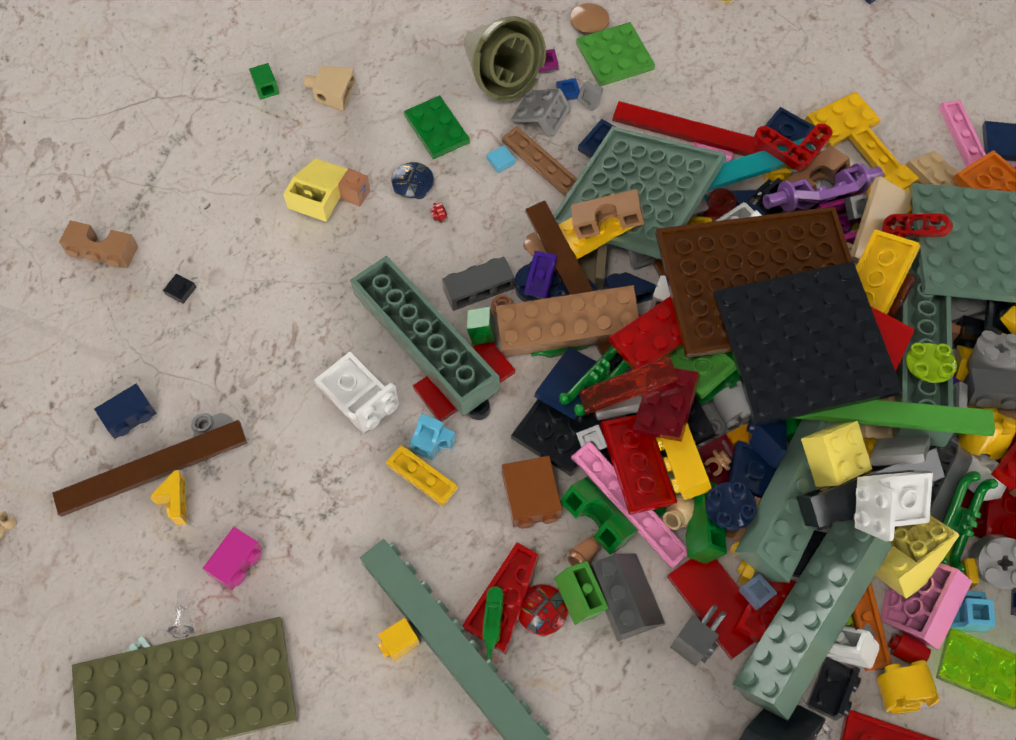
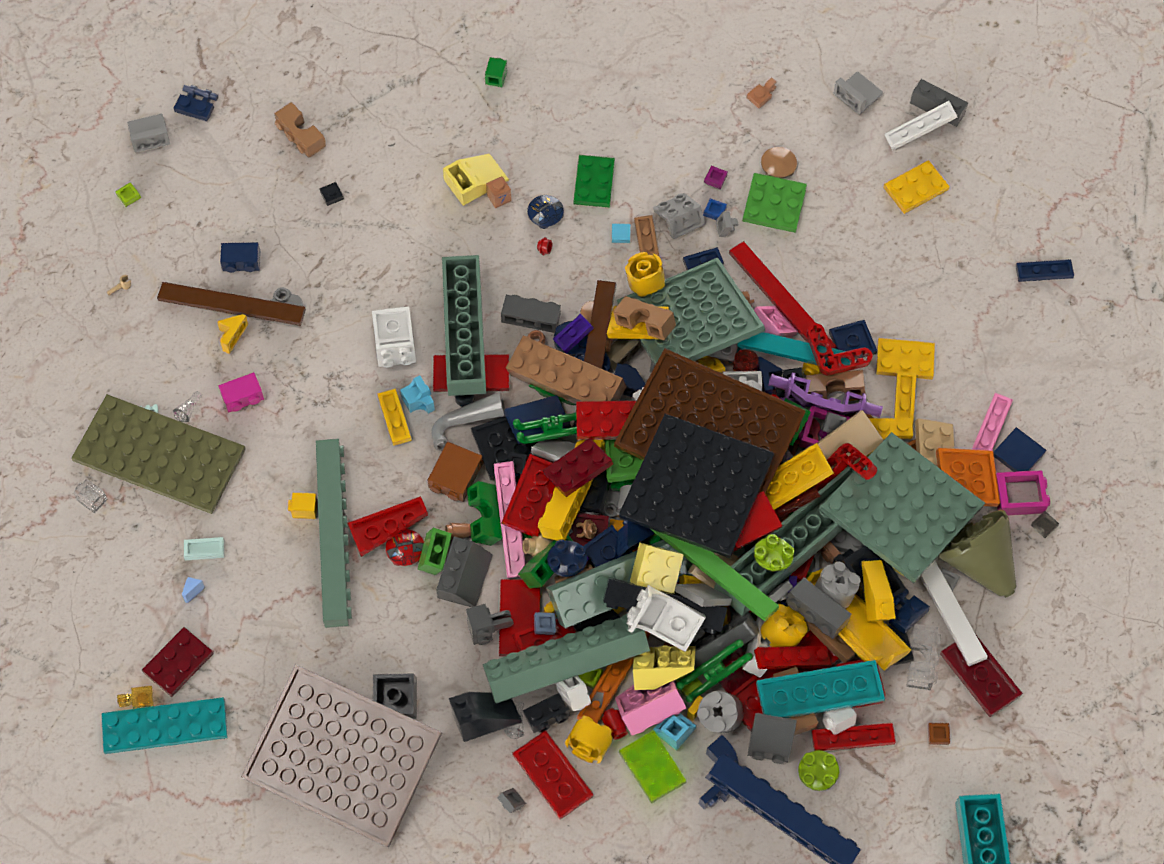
camera: 35 degrees right, 0 degrees up
(332, 86) = (541, 104): tan torso -> none
(481, 326) = (506, 343): green brick -> none
(493, 618) = (368, 529): green piece -> none
(506, 57) = (676, 159): olive cone -> none
(507, 409) = (482, 409): none -> light grey animal
(562, 178) = (645, 273): none -> yellow brick
(628, 385) = (562, 440): clear red tile -> none

